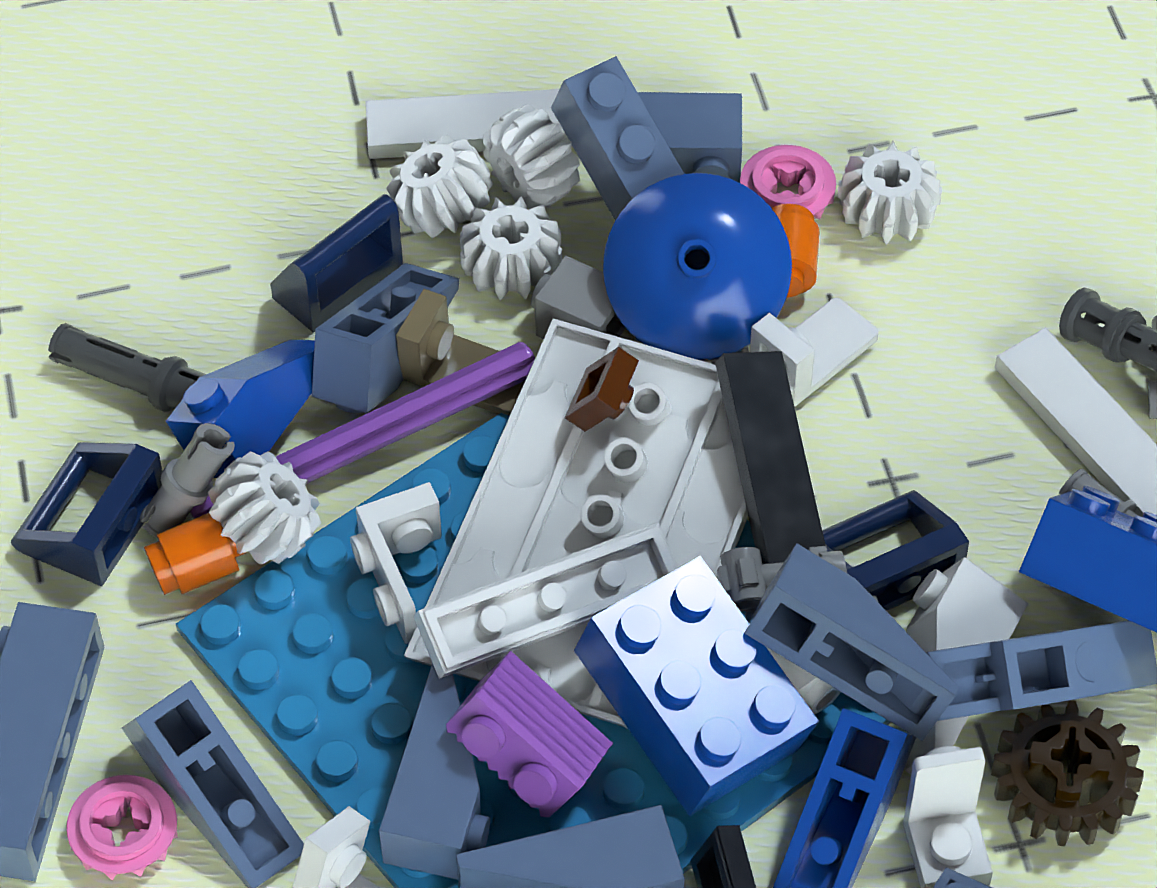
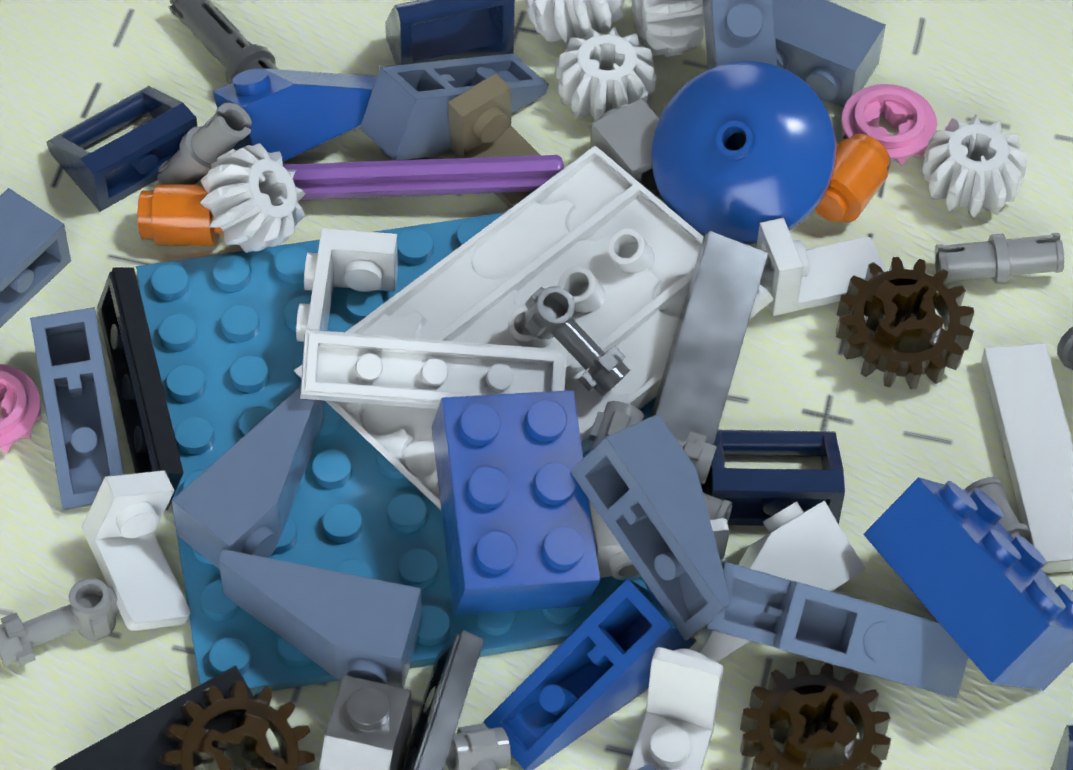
camera: 25 degrees right, 0 degrees up
(267, 742) = (137, 377): none -> black tile
(528, 735) = (345, 478): medium lavender brick -> none
(603, 390) = (592, 222): reddish brown plate -> none
(631, 493) = (551, 316): none -> dark grey bar
(948, 363) = (914, 344): none -> dark brown gear
(959, 268) = (1000, 257): none -> light grey pin

